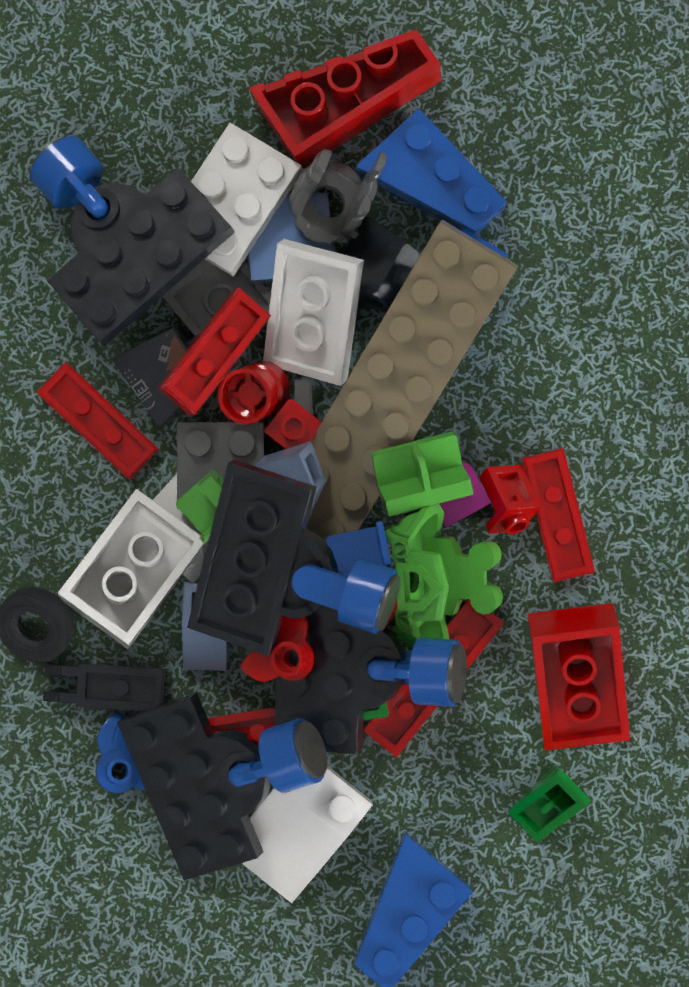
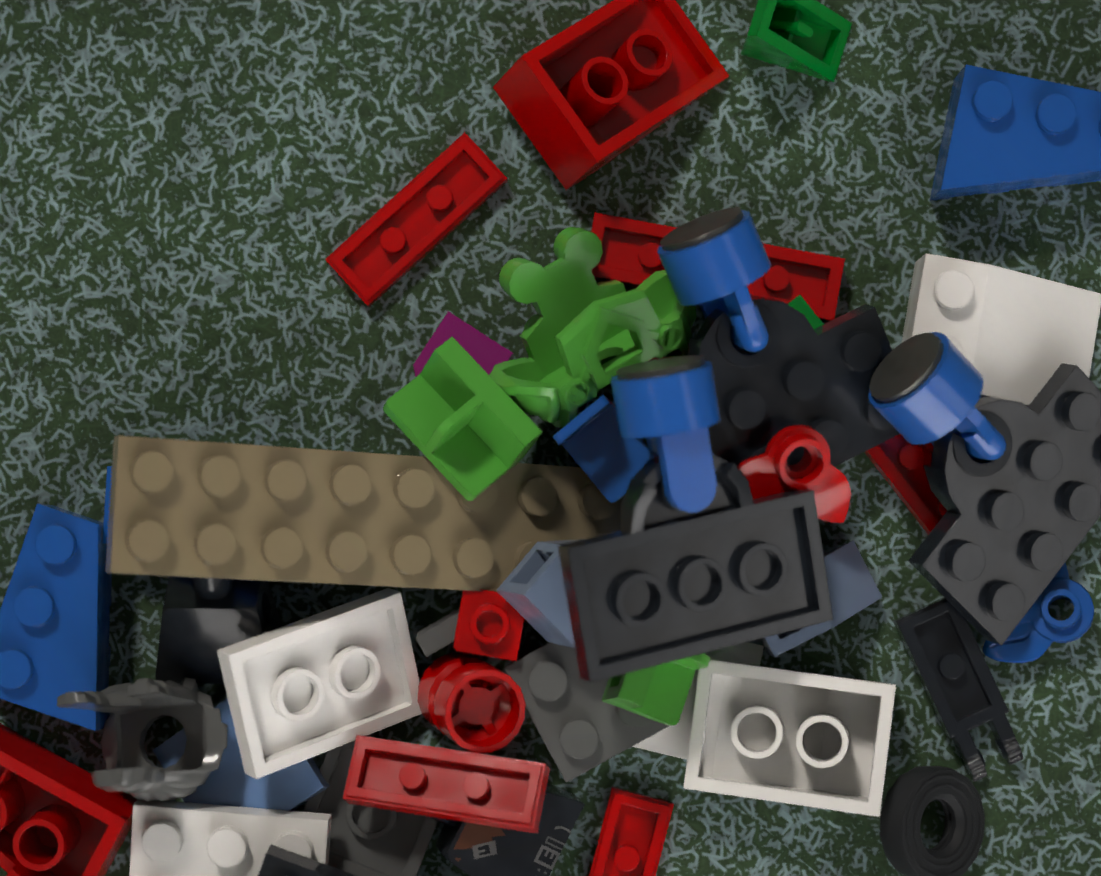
camera: 110 degrees left, 0 degrees up
(511, 498) = (427, 290): red bracket -> none

